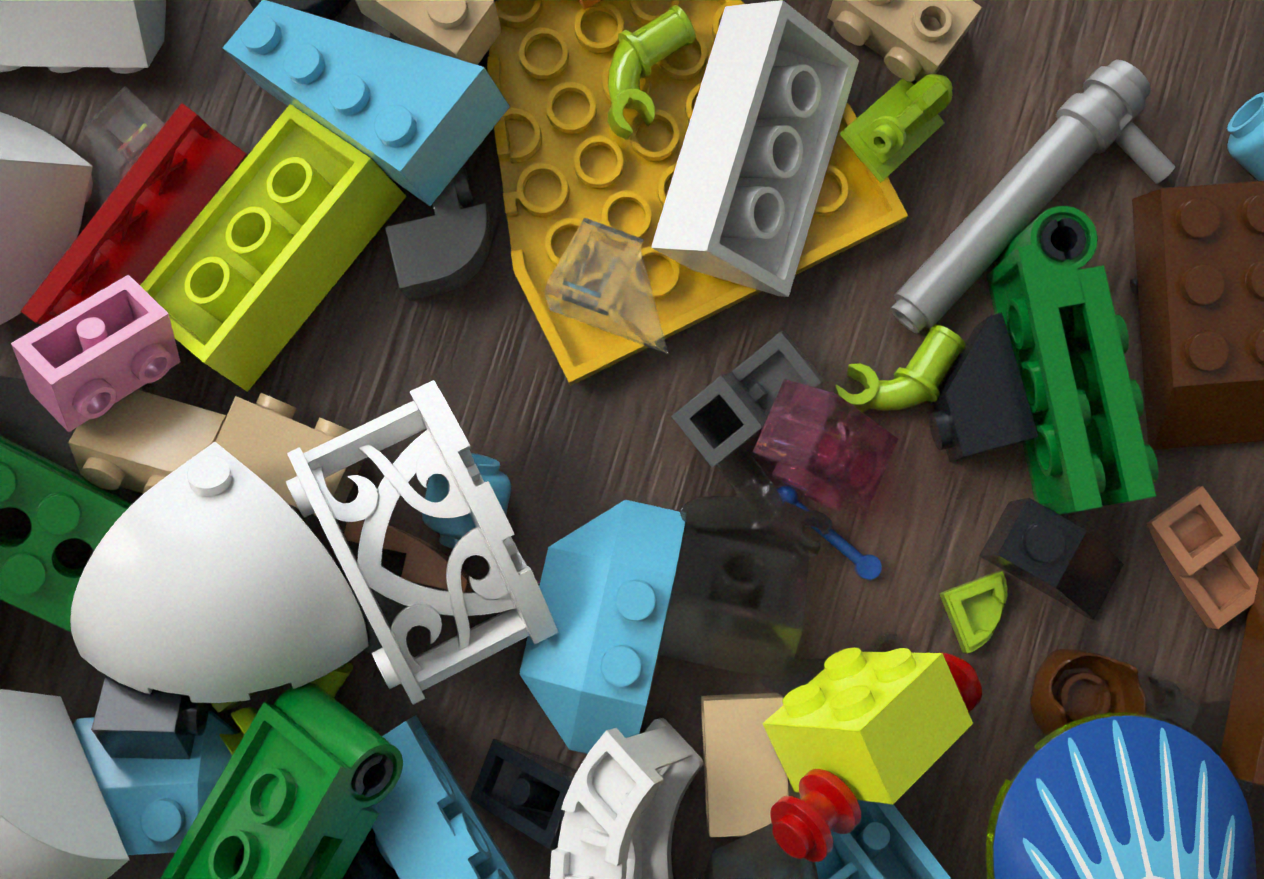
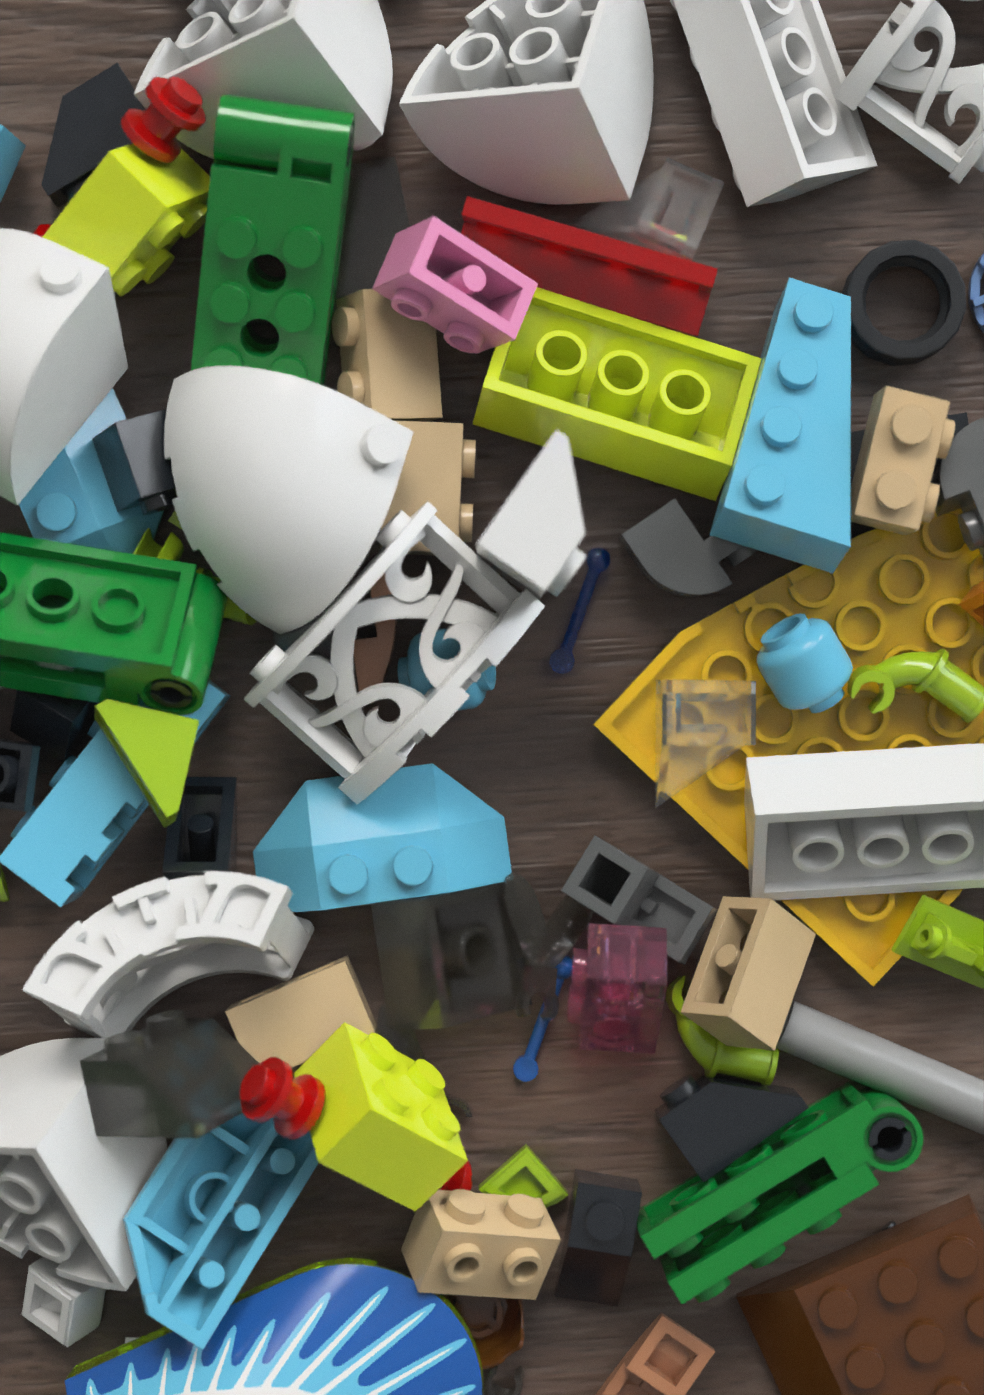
camera: 70 degrees right, 5 degrees up
(348, 355) = (539, 525): none -> white slope
(424, 812) = (153, 750): none -> lime slope
(500, 391) = (562, 659): none -> clear blue hinge
(583, 163) = (804, 663): none -> medium azure head
(854, 321) = (748, 972): none -> tan brick
(1025, 672) = (480, 1245): none -> tan brick

